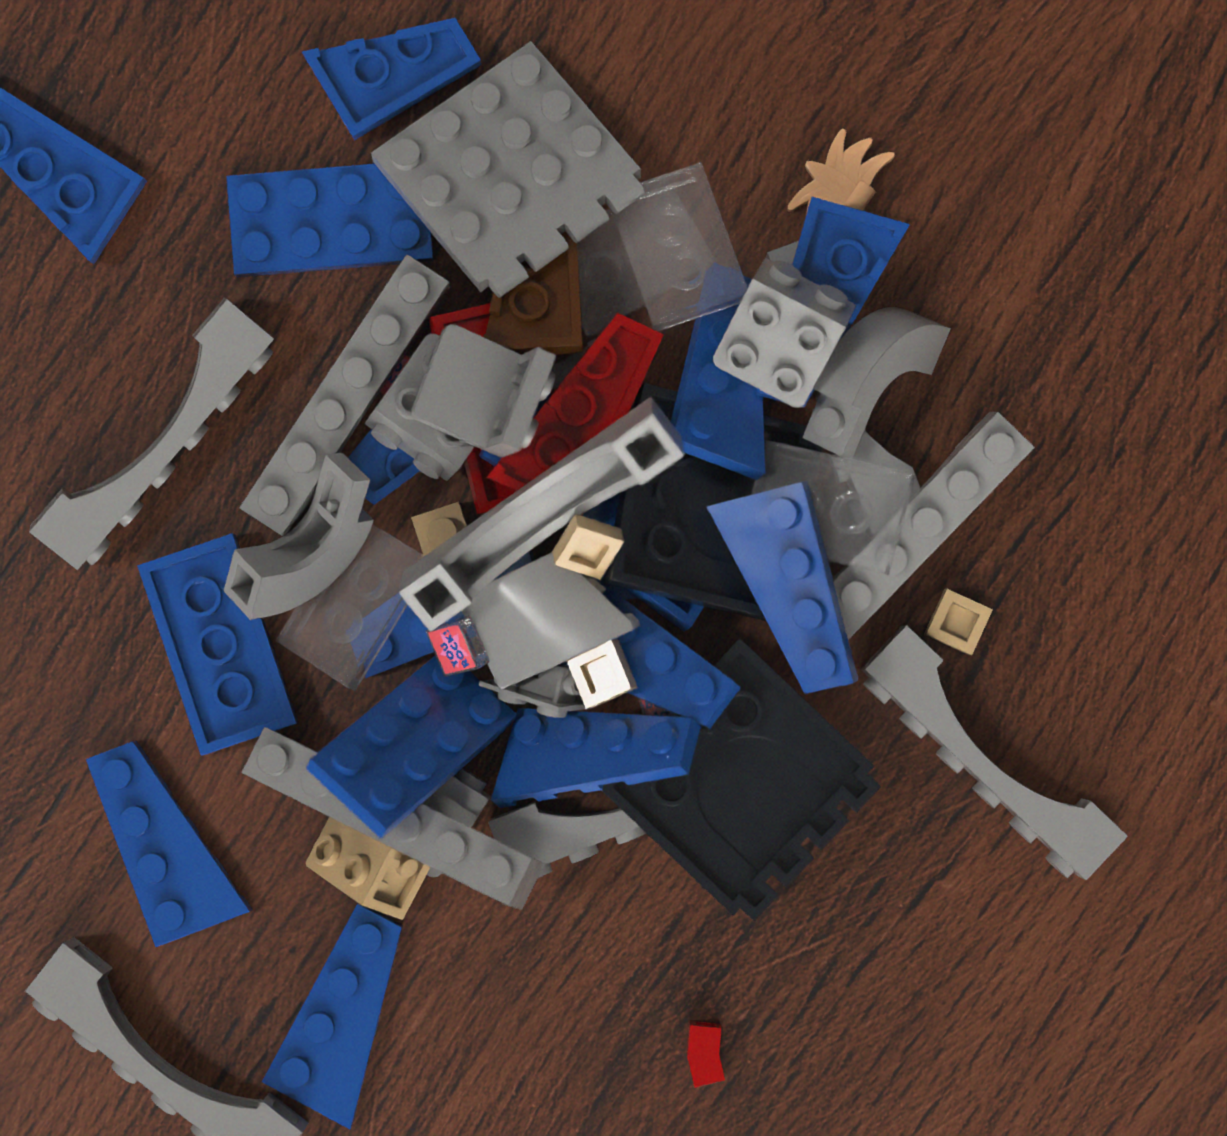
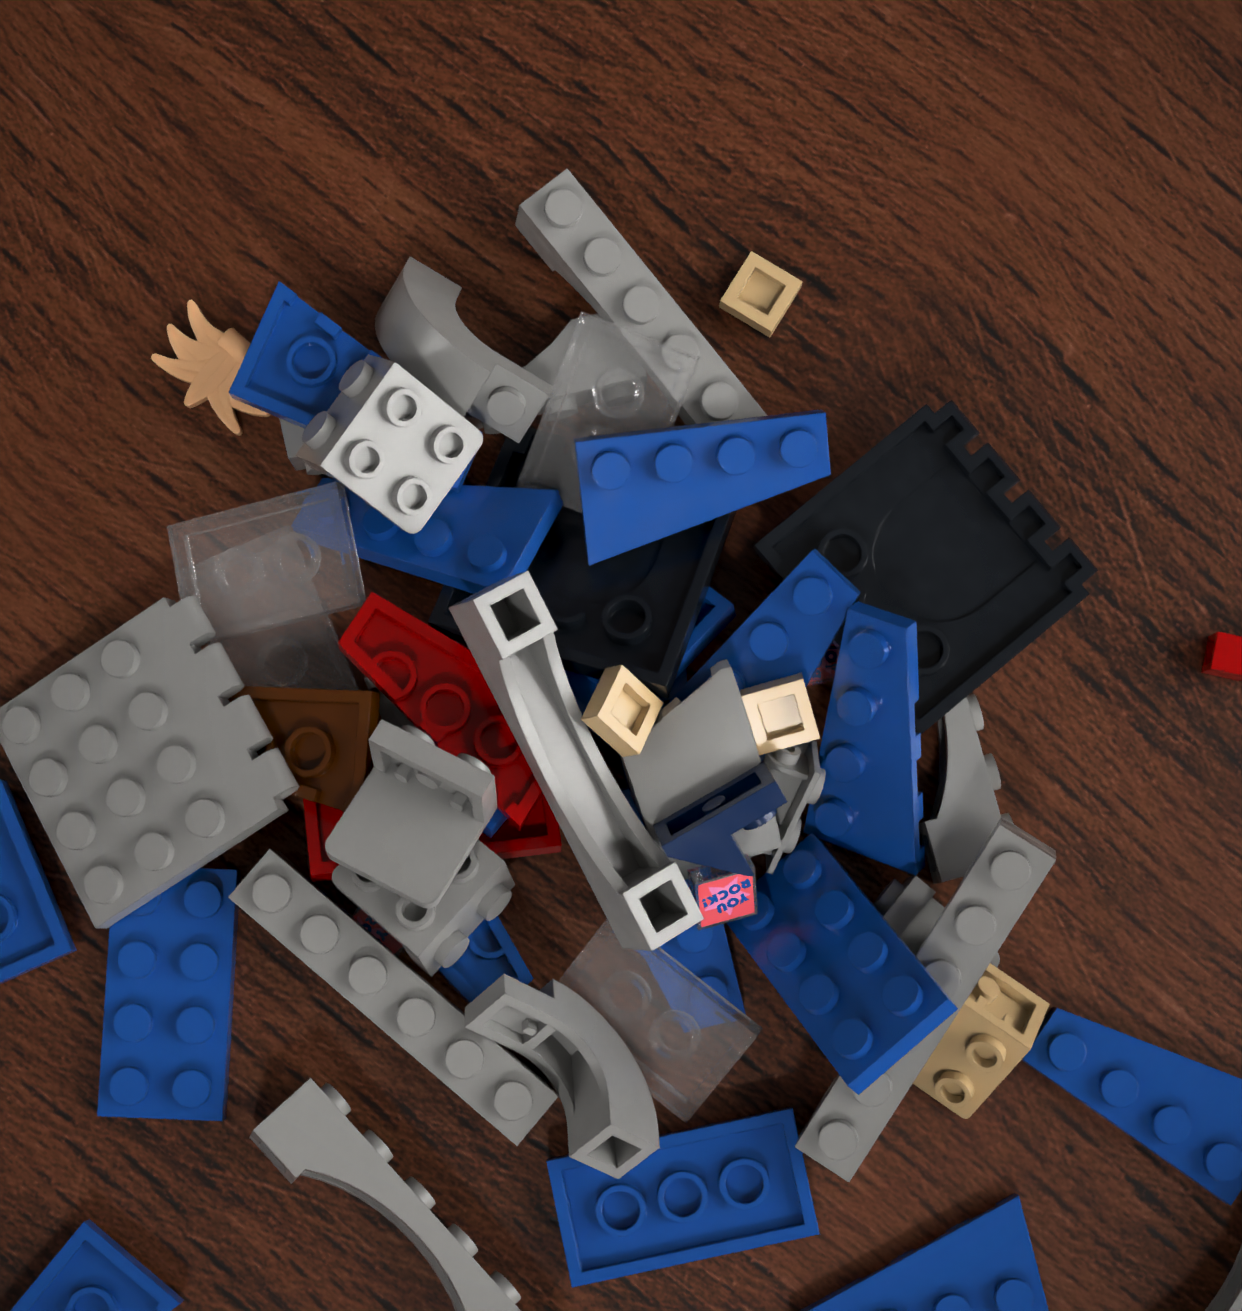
camera: 85 degrees left, 5 degrees down
(438, 526) = (571, 901): tan plate -> none
(502, 625) = (706, 827): none -> dark blue slope
(1075, 834) = (817, 358): light grey arch -> none

